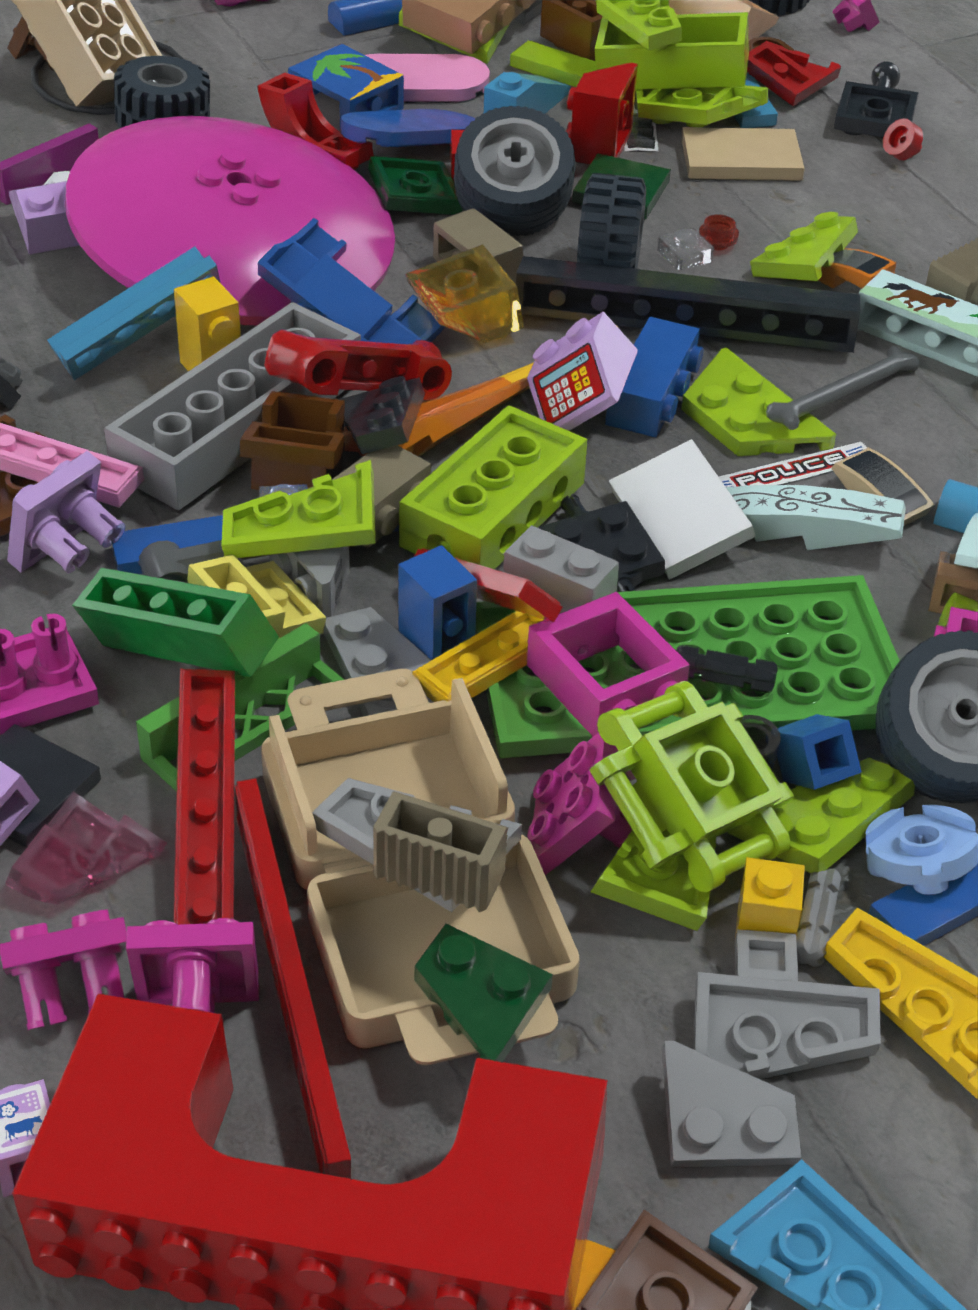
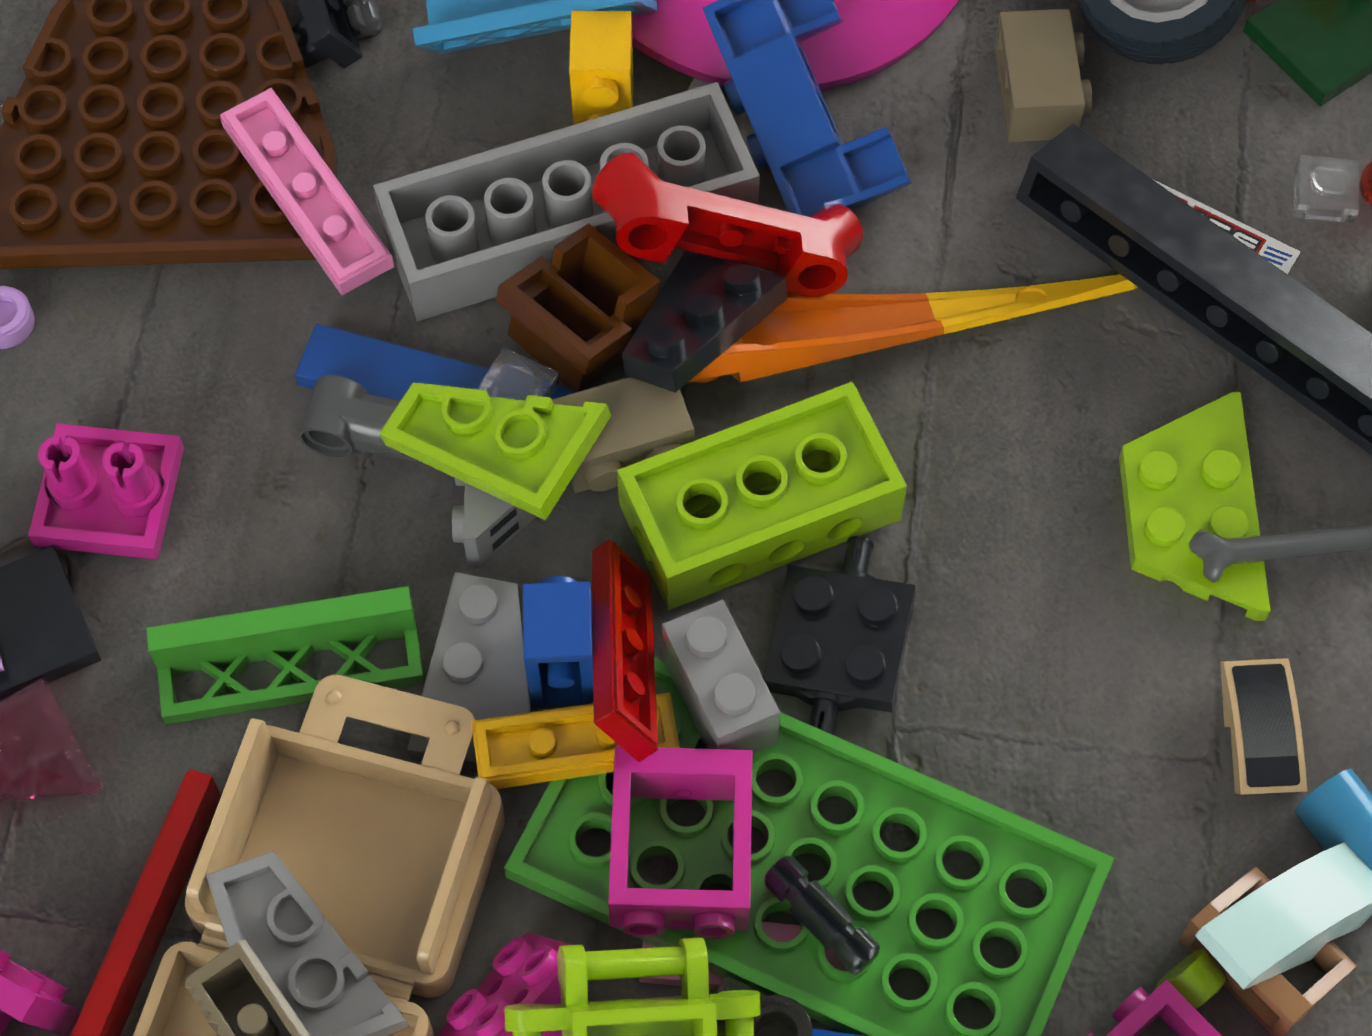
camera: 35 degrees right, 20 degrees up
(57, 510) = (237, 281): lavender plate -> none
(176, 621) = (262, 520): green brick -> none
(205, 797) = (140, 788): red tile -> none
(269, 586) = (386, 520): light yellow brick -> none
(470, 294) = (954, 156): clear yellow slope -> none
(581, 372) = (990, 368): slope -> none
(612, 220) = (1215, 131): black wheel -> none
(657, 377) = (1105, 398): blue brick -> none
(683, 508) = (975, 631): white tile -> none
(792, 469) = (1180, 627): sticker -> none
(820, 514) = (1123, 721): light aqua slope -> none

